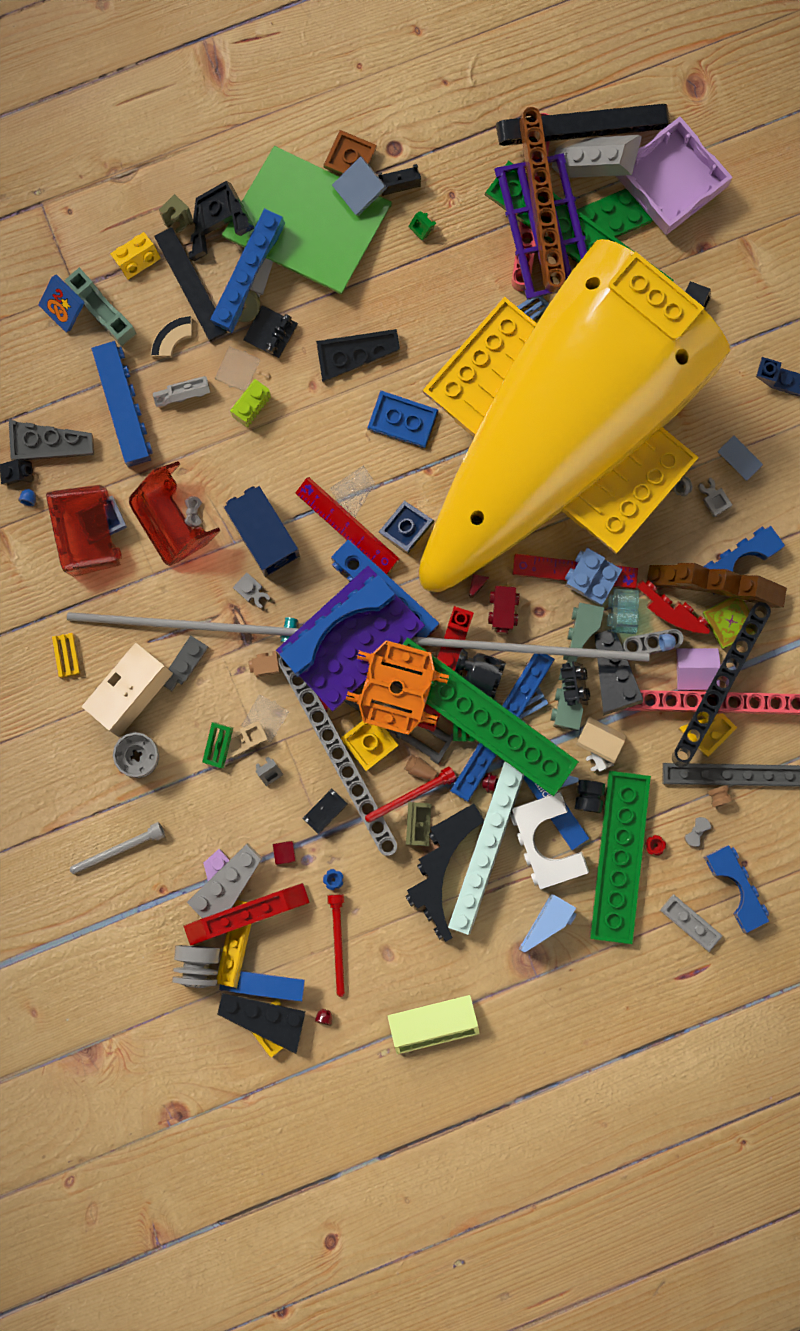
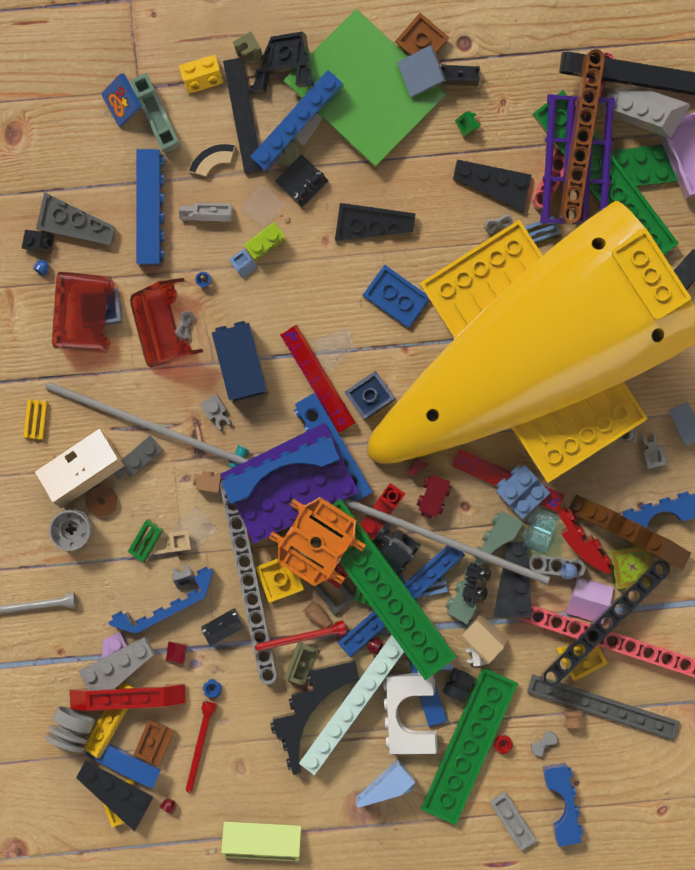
camera: 20 degrees right, 5 degrees up
(169, 718) = (93, 497): none -> reddish brown piece
(196, 463) = (200, 281): none -> blue hinge
(220, 836) = (124, 621): none -> blue slope
(235, 432) = (243, 263): none -> medium blue slope
(288, 954) = (153, 742): none -> dark orange plate
(474, 275) = (499, 183): none -> black wing
(477, 318) = (492, 225): none -> light grey piece

